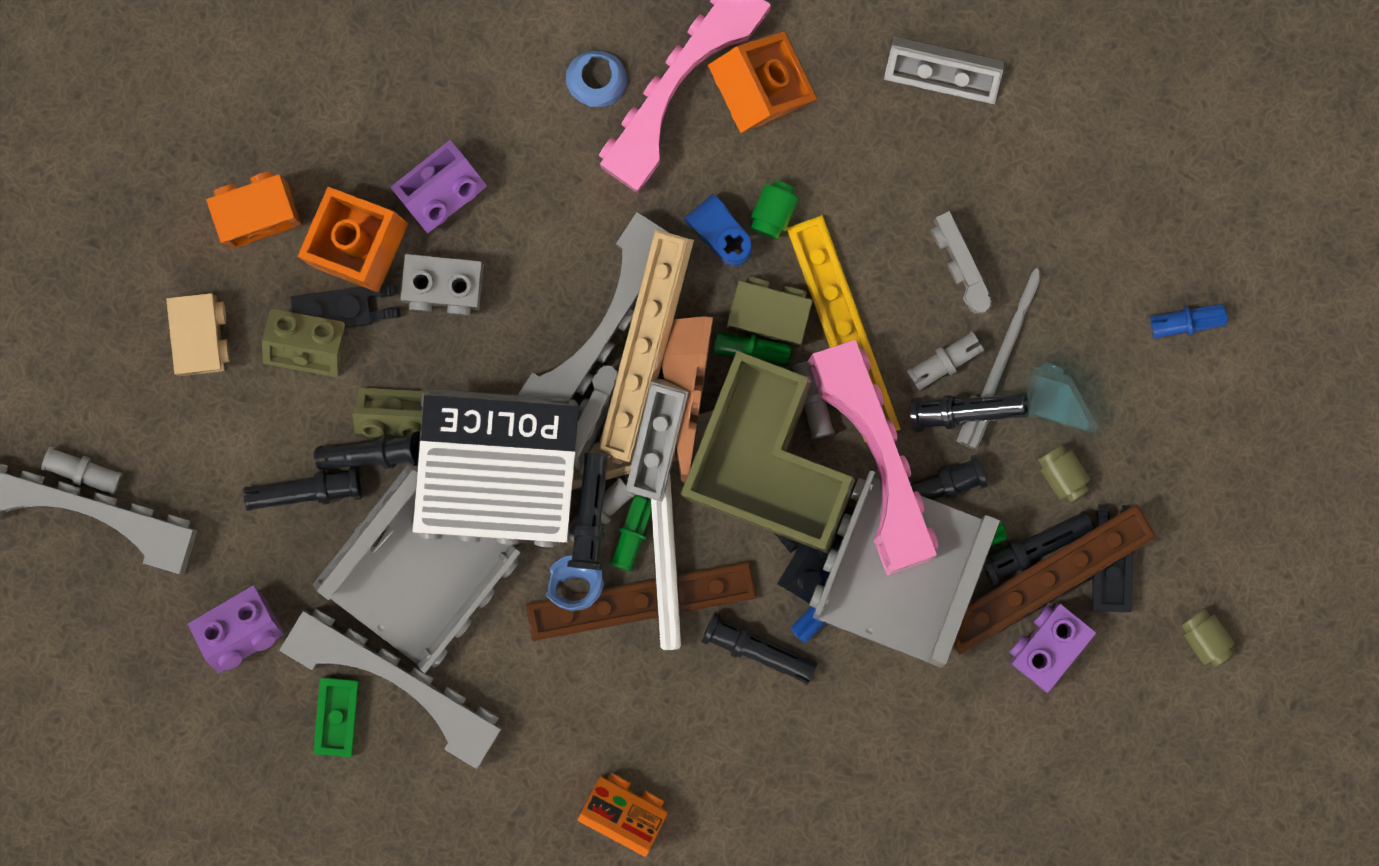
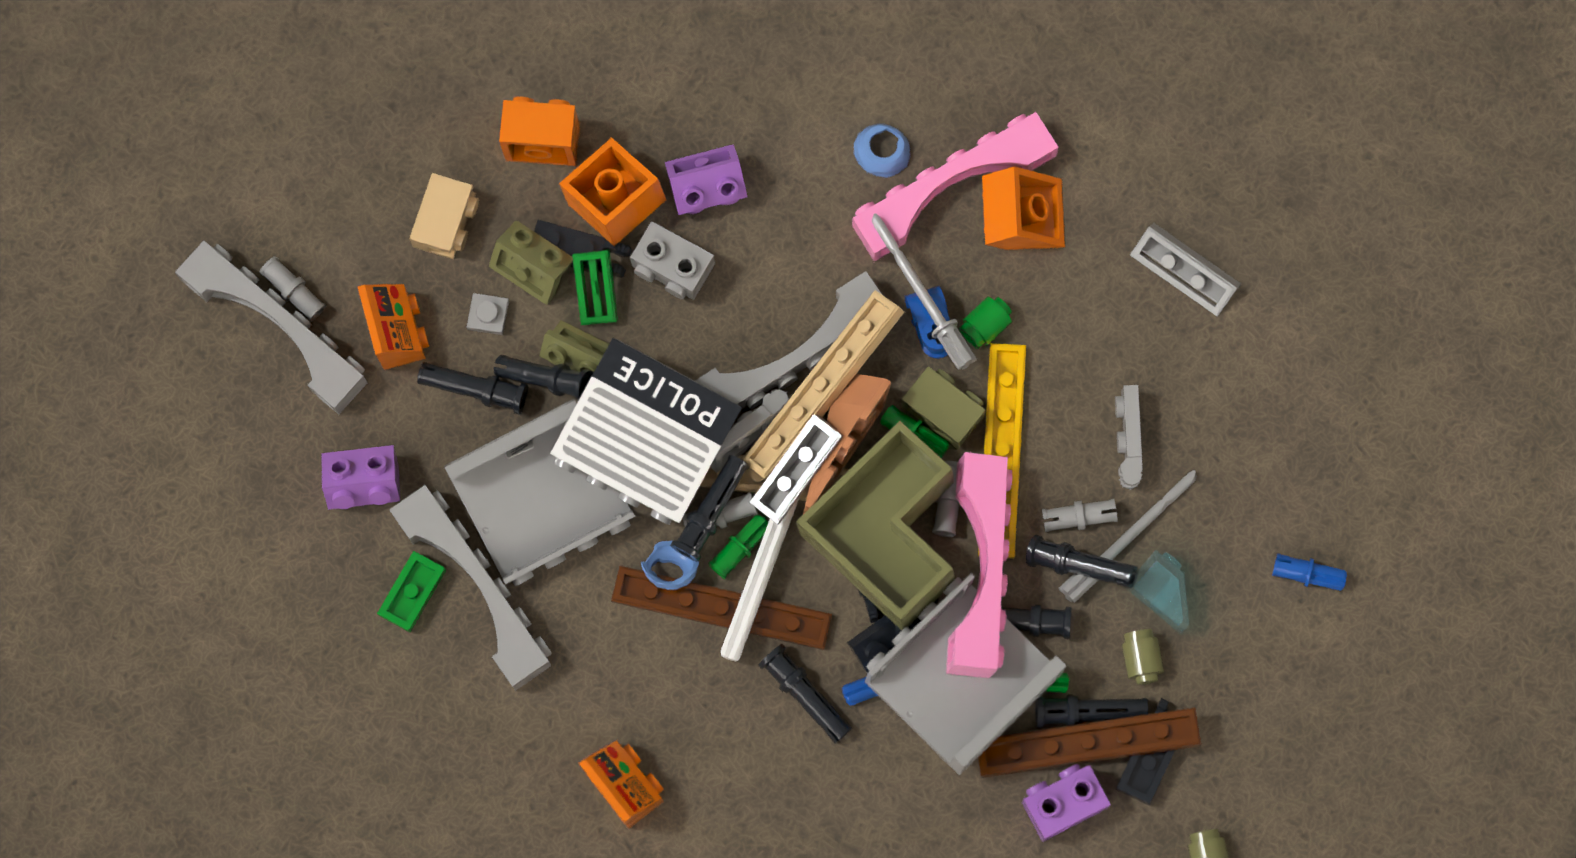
camera: 25 degrees right, 10 degrees down
(197, 465) = (393, 324): none -> orange slope
(284, 411) = (487, 314): none -> light grey plate
(362, 313) = (592, 257): none -> green tile
(744, 241) = (946, 330): none -> light grey piece

